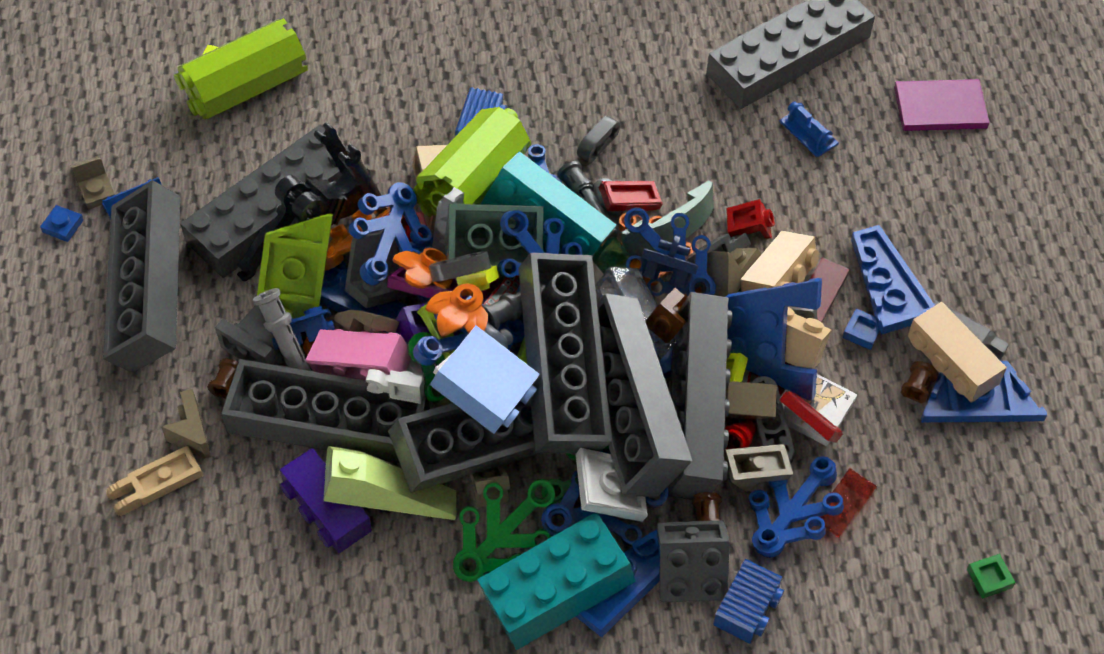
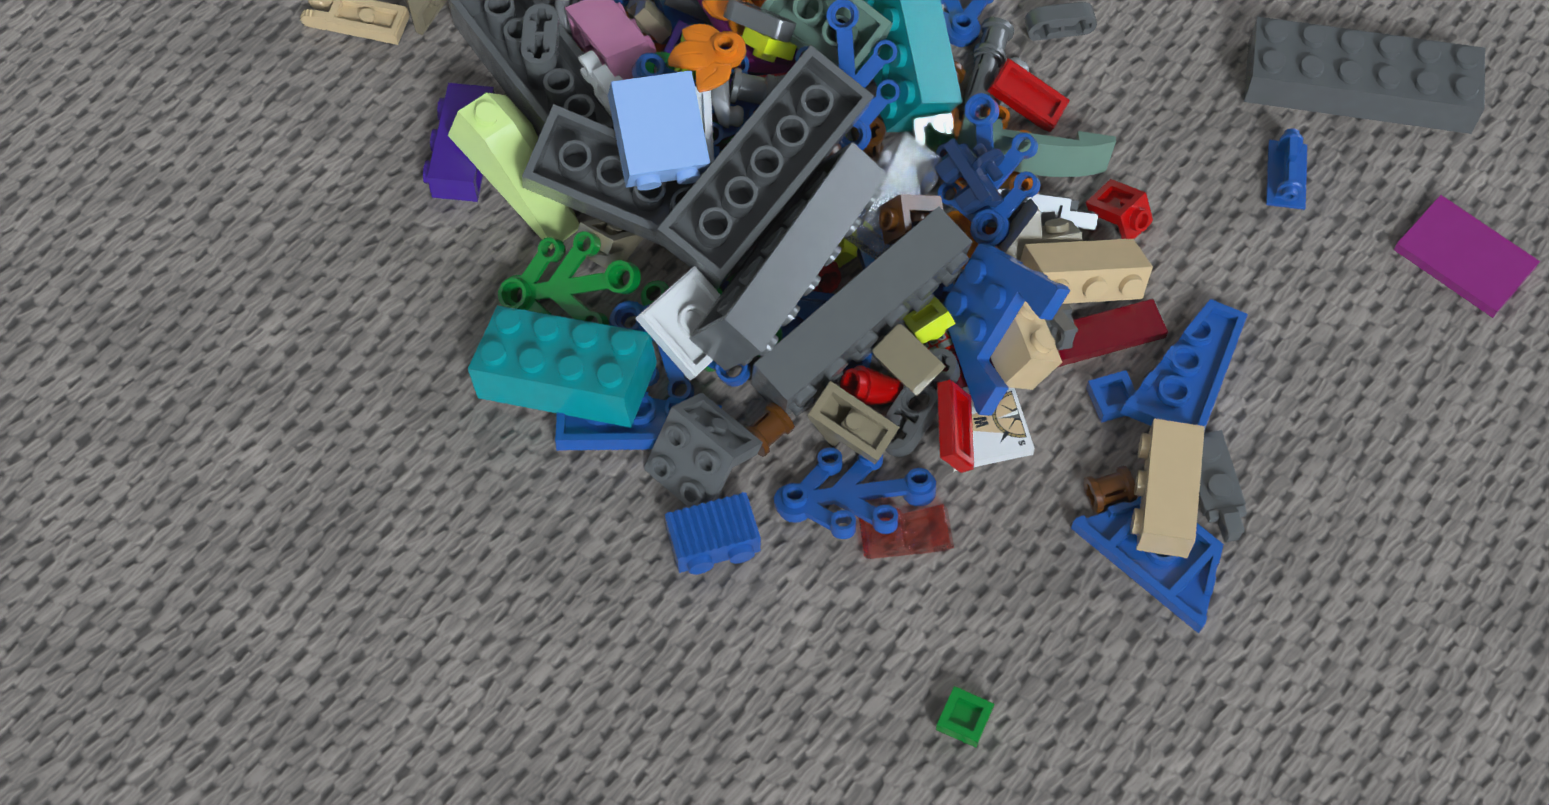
camera: 45 degrees right, 5 degrees up
(312, 394) = (532, 38): none -> dark grey beam

